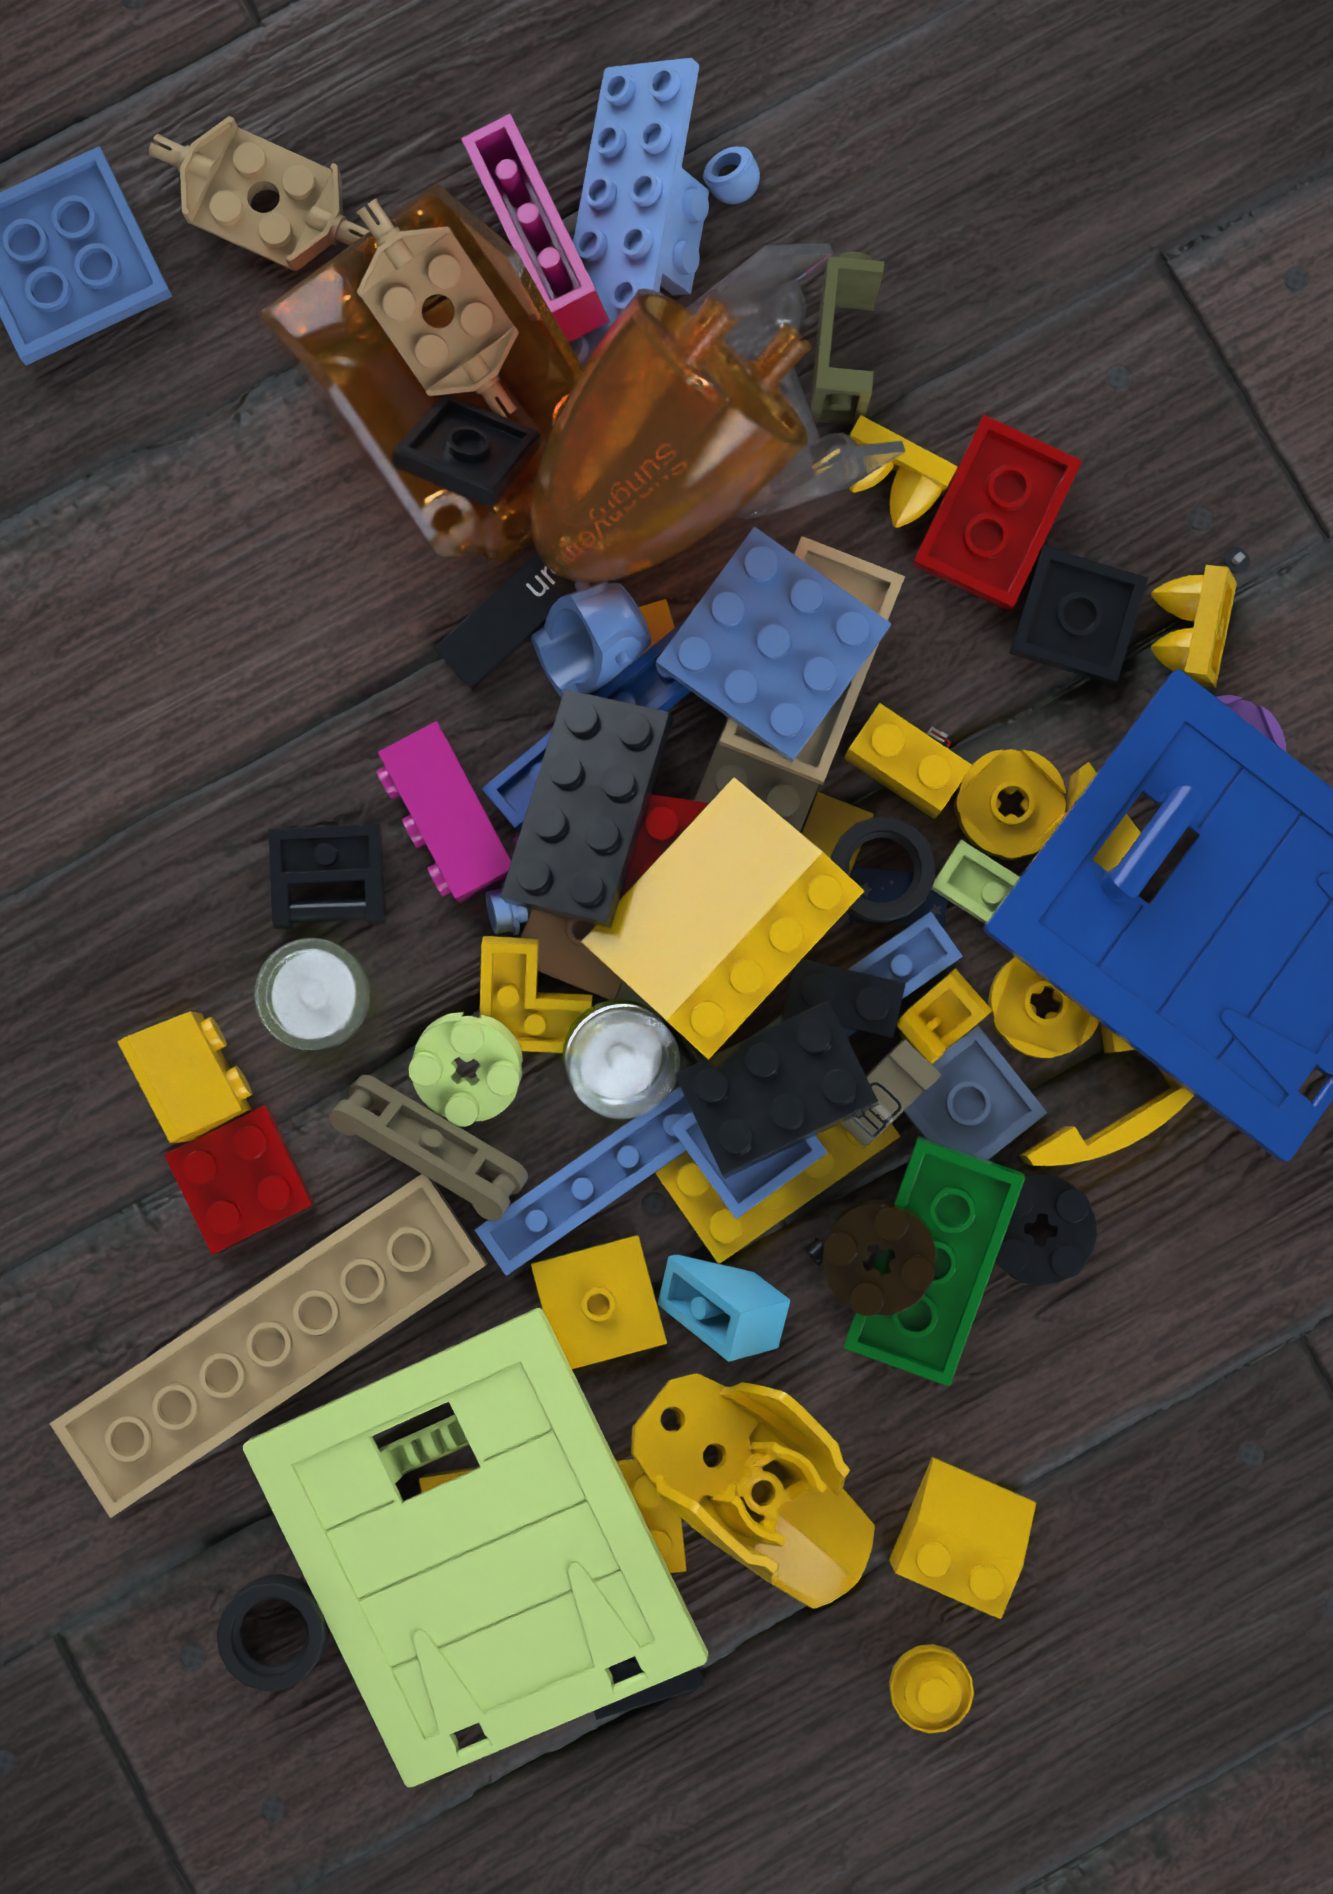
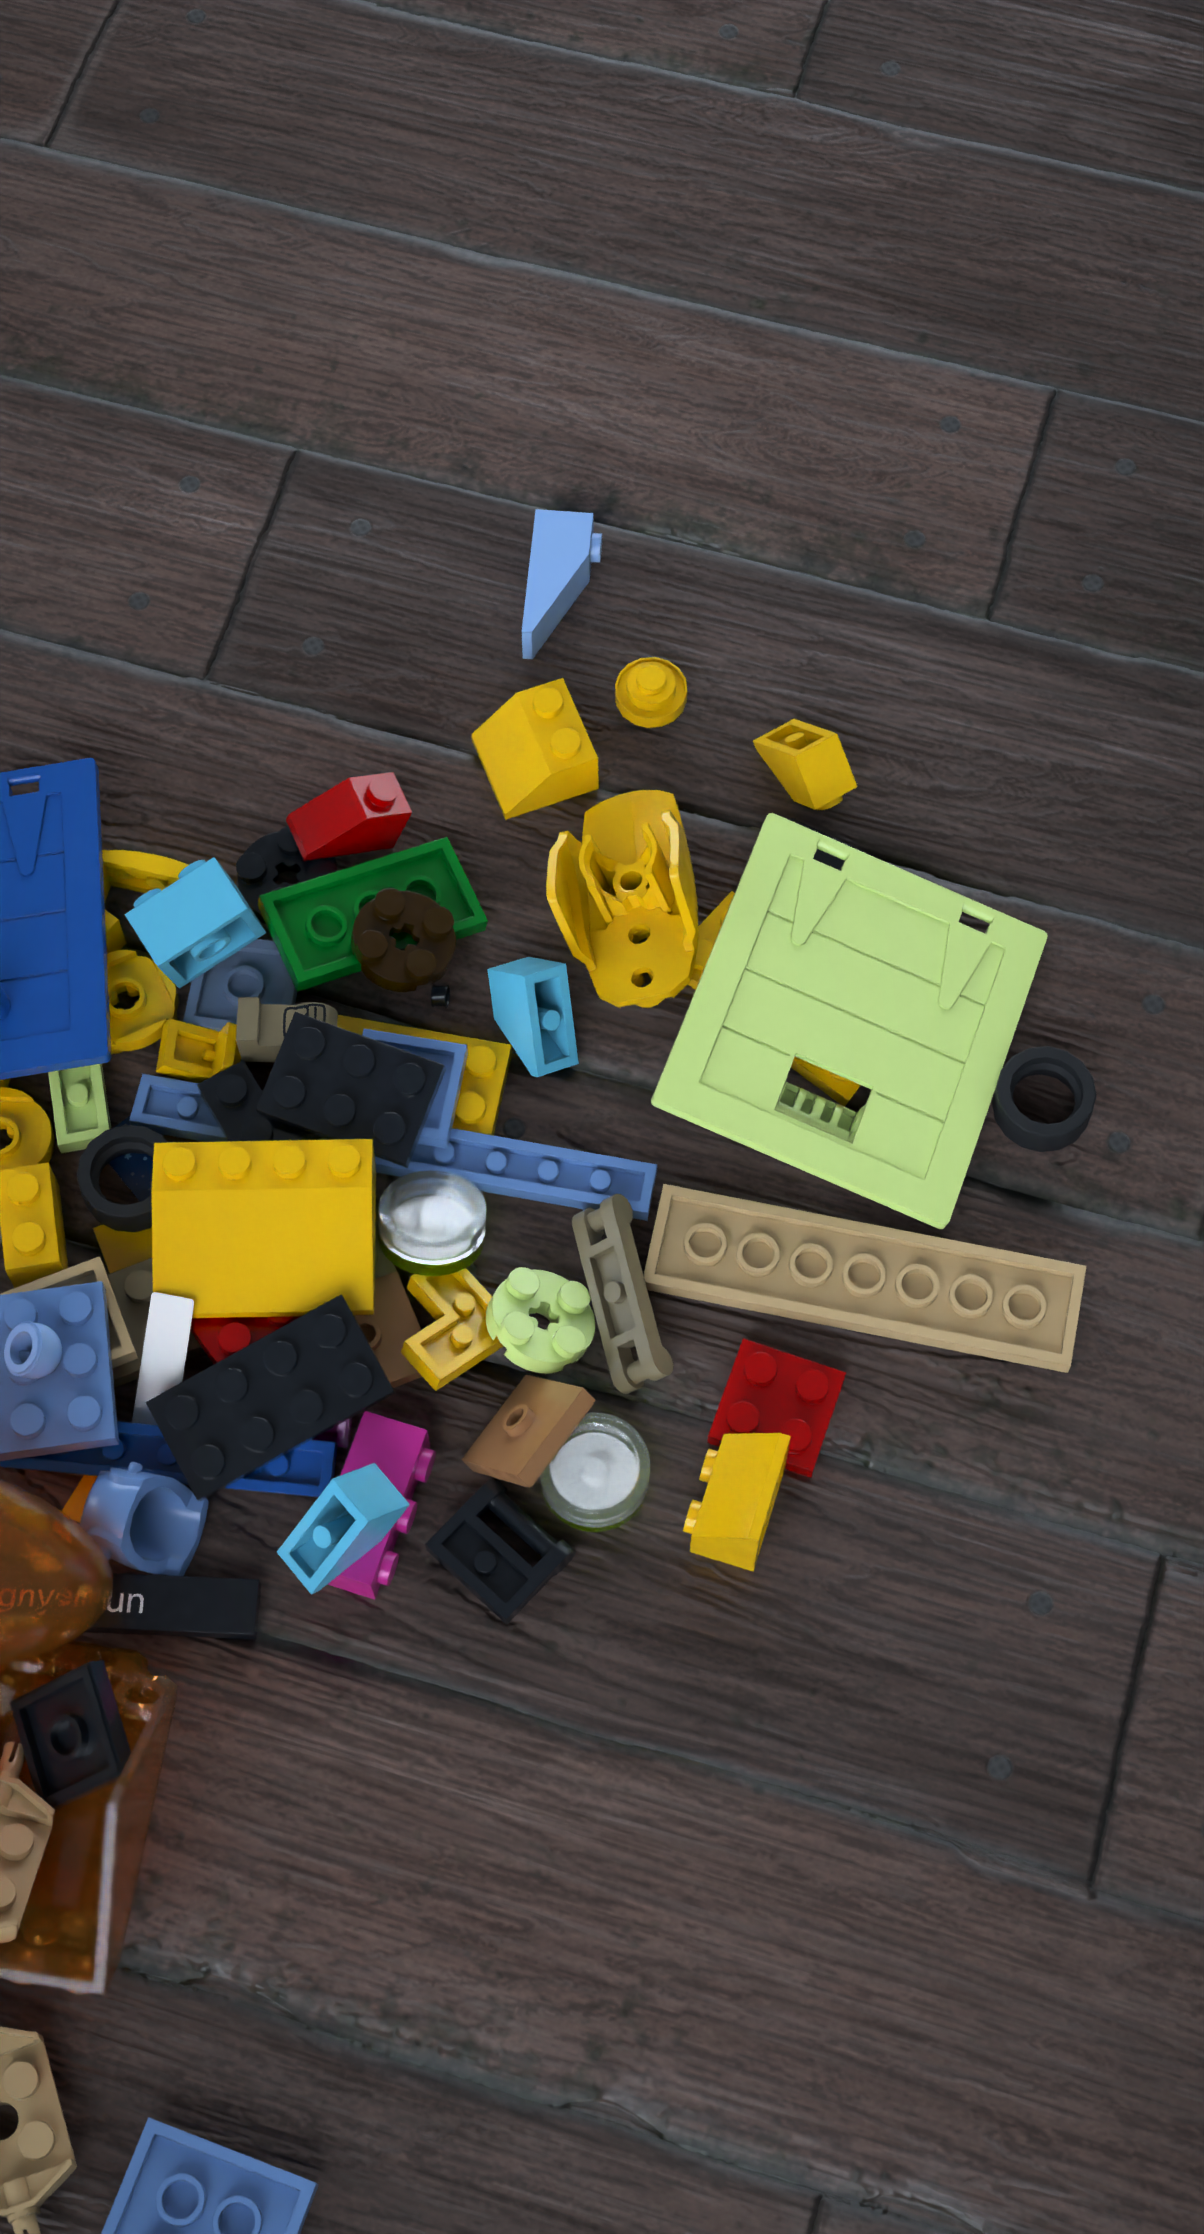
camera: 135 degrees left, 20 degrees down
(385, 973) = (528, 1430): none -> medium nougat plate
(429, 765) = (342, 1526): none -> medium azure slope
(504, 916) = (407, 1403): light blue plate -> none
(600, 1301) = (610, 1098): yellow plate -> none
(701, 761) = (162, 1350): none -> white sticker
(740, 1750) = (807, 763): none -> yellow slope
(770, 666) = (44, 1349): none -> light blue piece
(1037, 1096) = (194, 922): none -> medium azure brick
(1037, 1322) = (351, 818): none -> red slope
(1130, 1737) = (557, 571): none -> light blue slope

